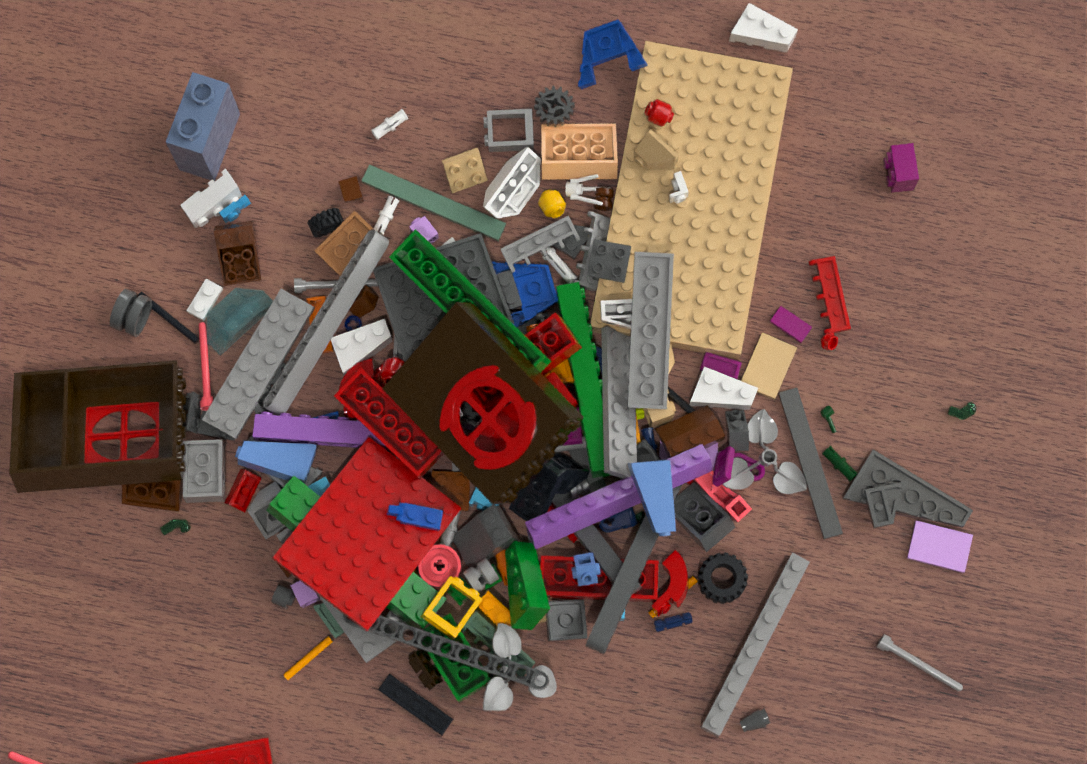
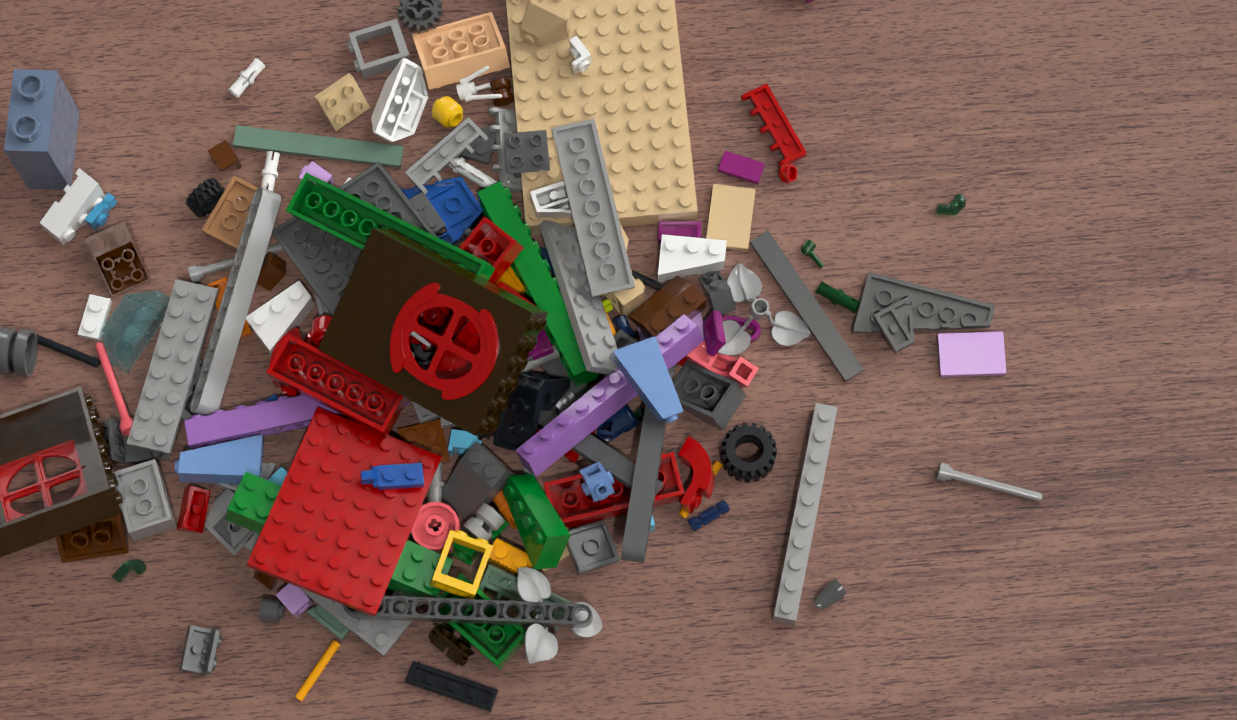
camera: 15 degrees left, 5 degrees down
(215, 613) = (200, 650): none -> dark grey bracket
(352, 318) = (265, 291): clear blue bush -> none

